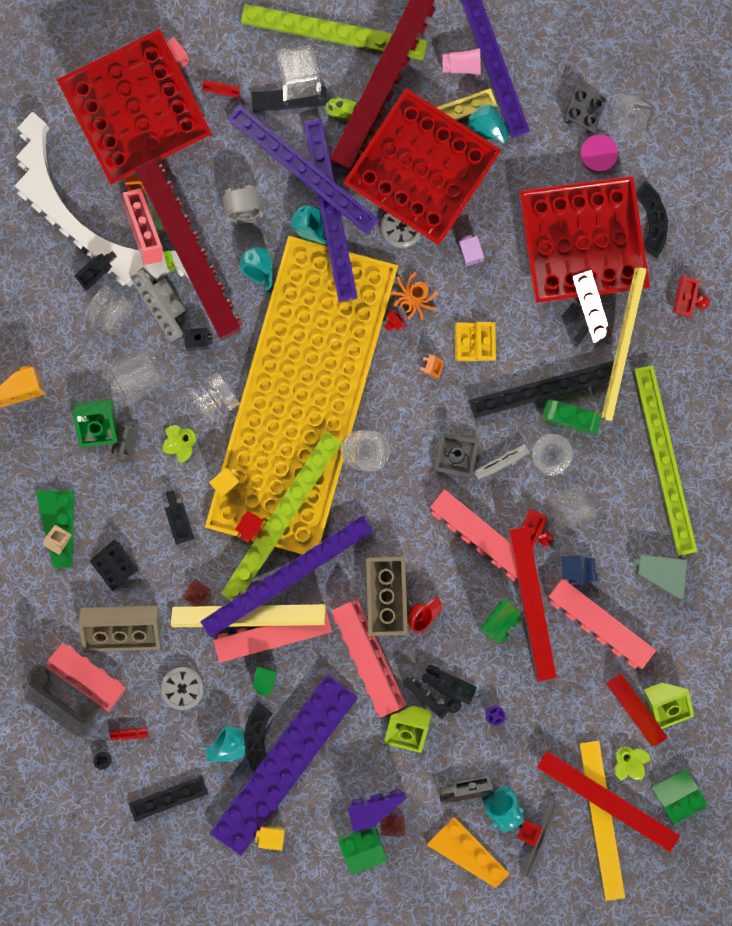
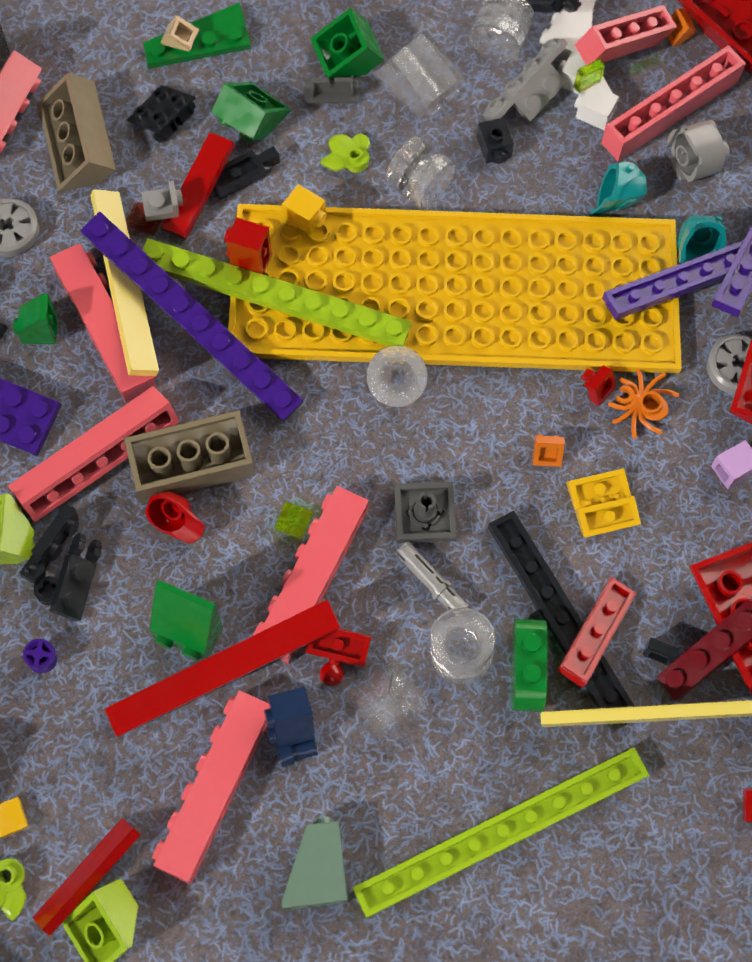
camera: 70 degrees right, 15 degrees down
(130, 502) = (249, 110): none -> green slope
(184, 551) = (199, 184): none -> red tile
(186, 246) = (611, 94): dark red brick -> none
(194, 578) = (162, 202): none -> light grey bracket
(199, 209) = (672, 103): none -> coral brick
(441, 539) = (293, 520): none -> clear neon green tile
(560, 370) = (596, 632): none -> tile

